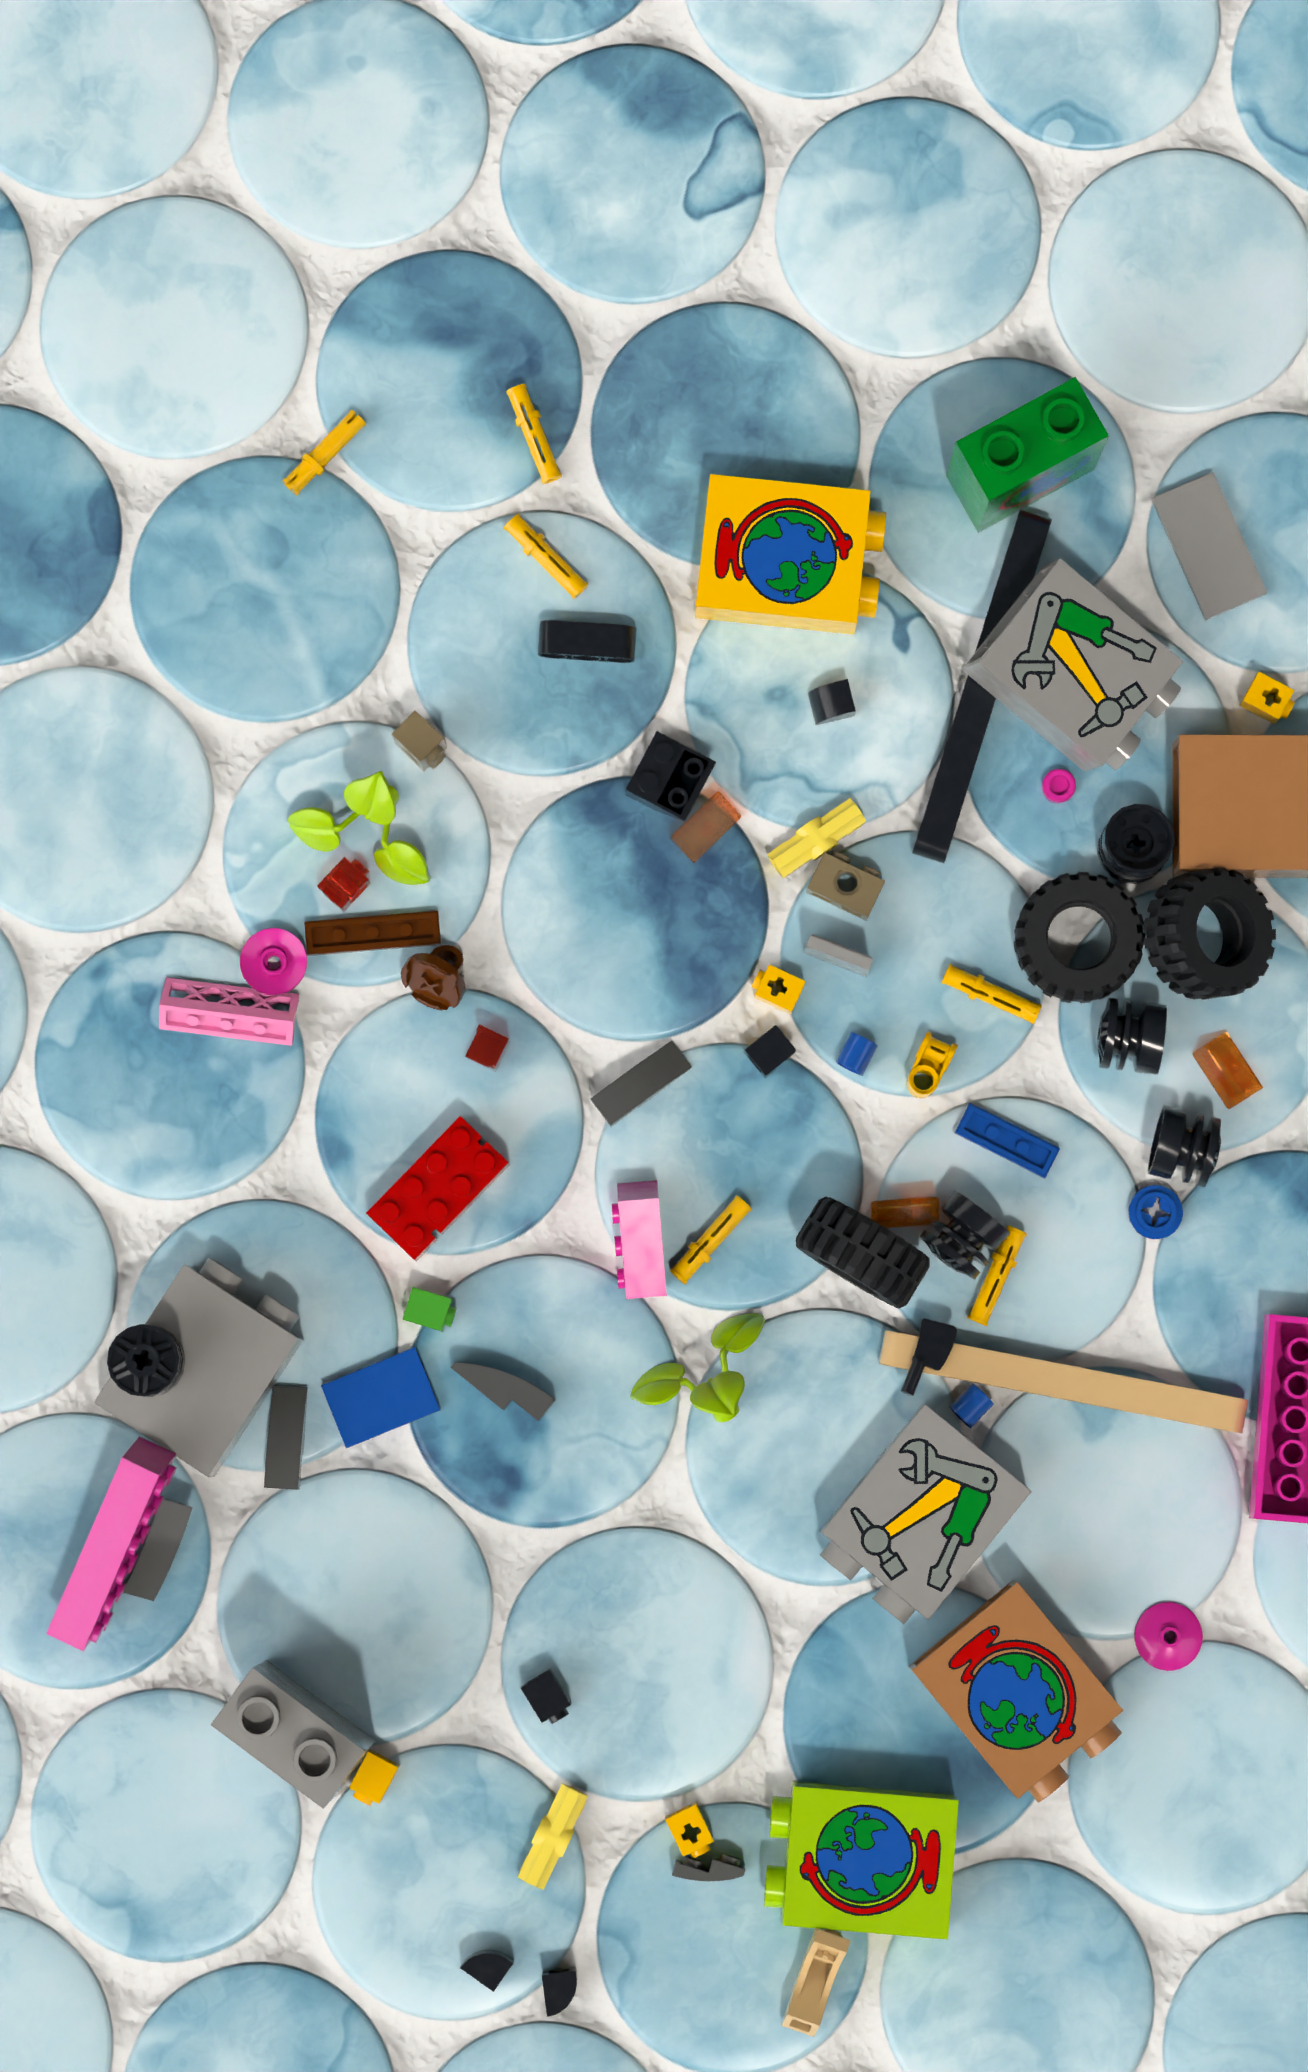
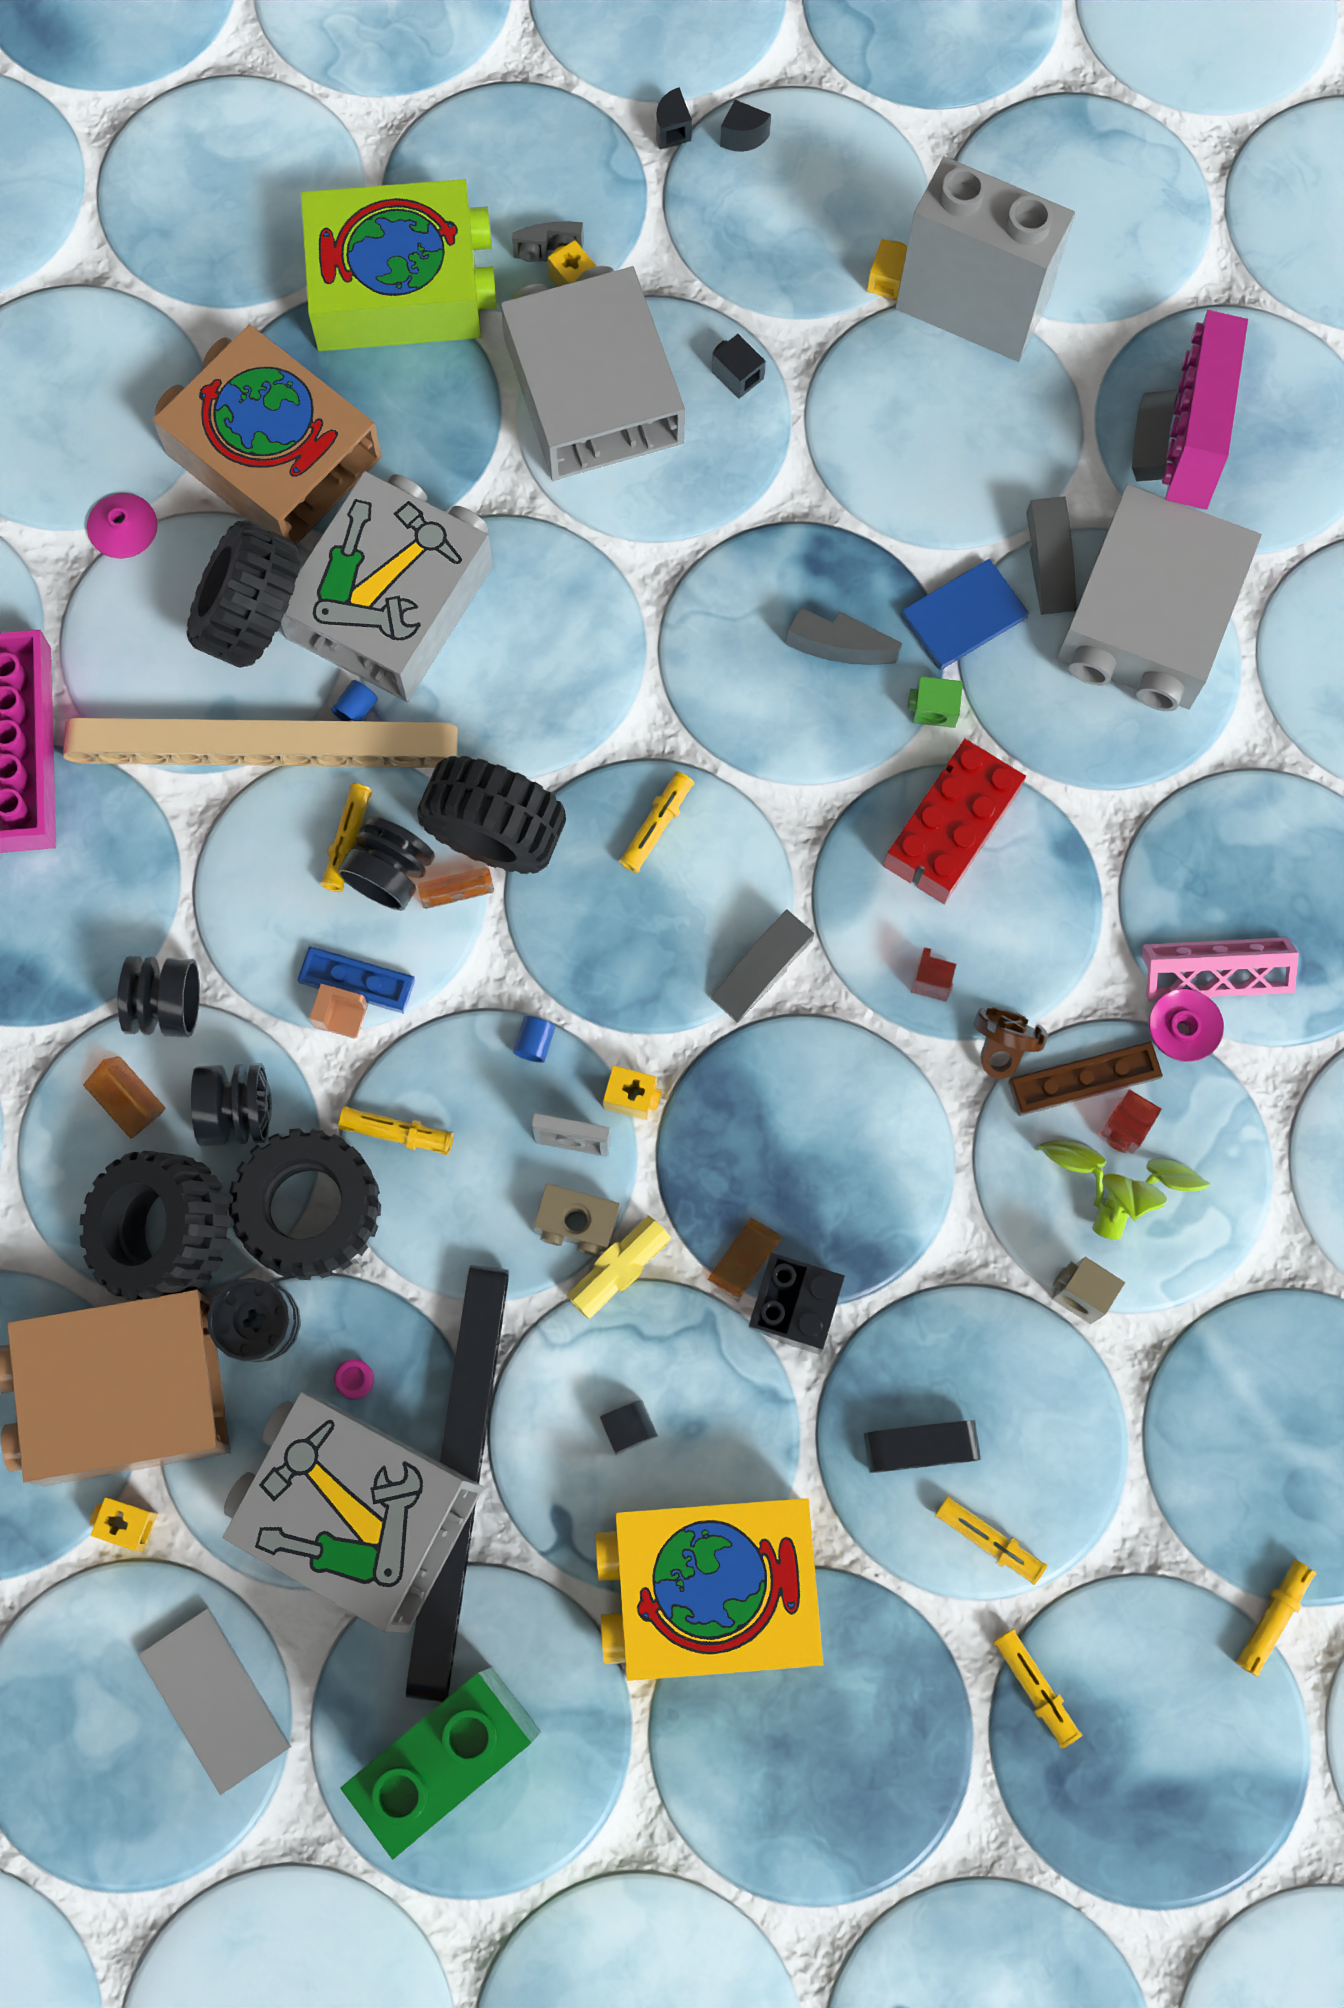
camera: 165 degrees right, 10 degrees down
(163, 1350) = (1224, 568): black wheel -> none
(552, 1836) = (705, 247): light yellow piece -> none
(639, 1240) = (732, 807): wedge -> none
(692, 1709) = (592, 371): none -> light grey brick
(717, 1395) = (616, 638): lime plant -> none
(770, 1051) = (630, 1023): black panel -> none
(815, 1981) = (429, 151): tan arch -> none
(931, 1060) = (449, 1047): yellow piece -> none
(932, 1351) = (403, 740): black piece -> none
(1026, 1111) = (338, 1011): none -> nougat panel
(1059, 1511) = (243, 594): none -> black tyre
(1164, 1225) = (174, 920): blue gear -> none

